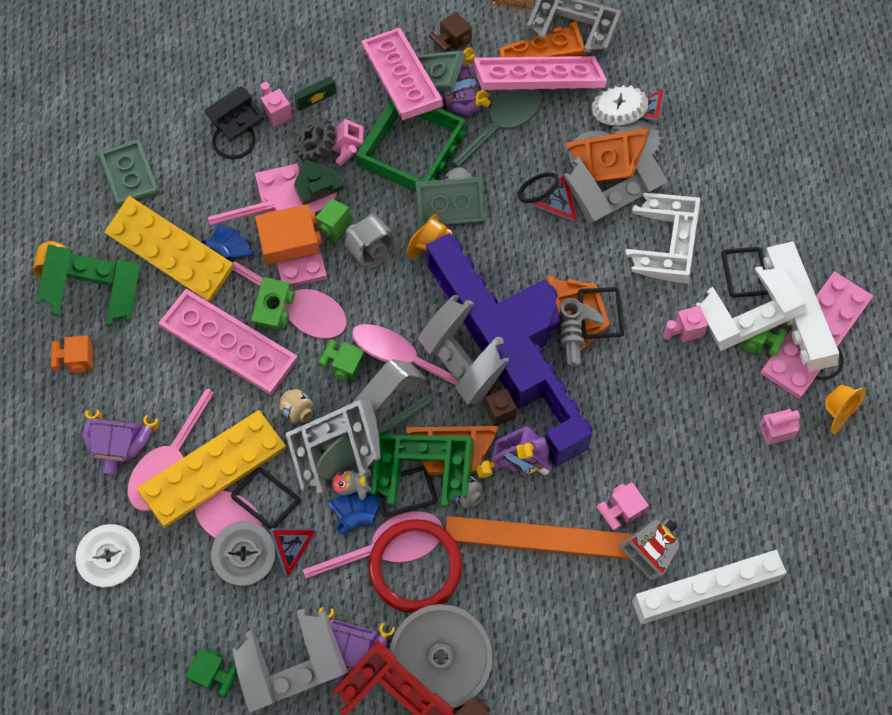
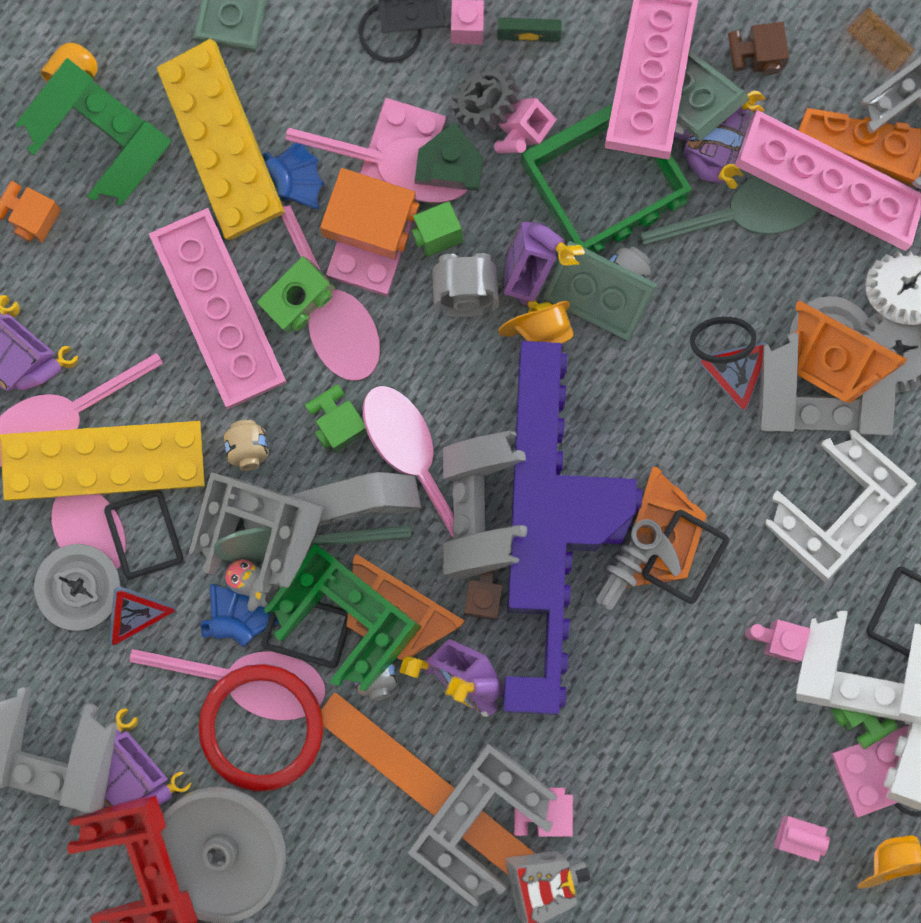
camera: 30 degrees right, 15 degrees up
(399, 203) = (531, 259): none -> medium lavender torso
(575, 500) = (438, 844): none -> light grey wedge

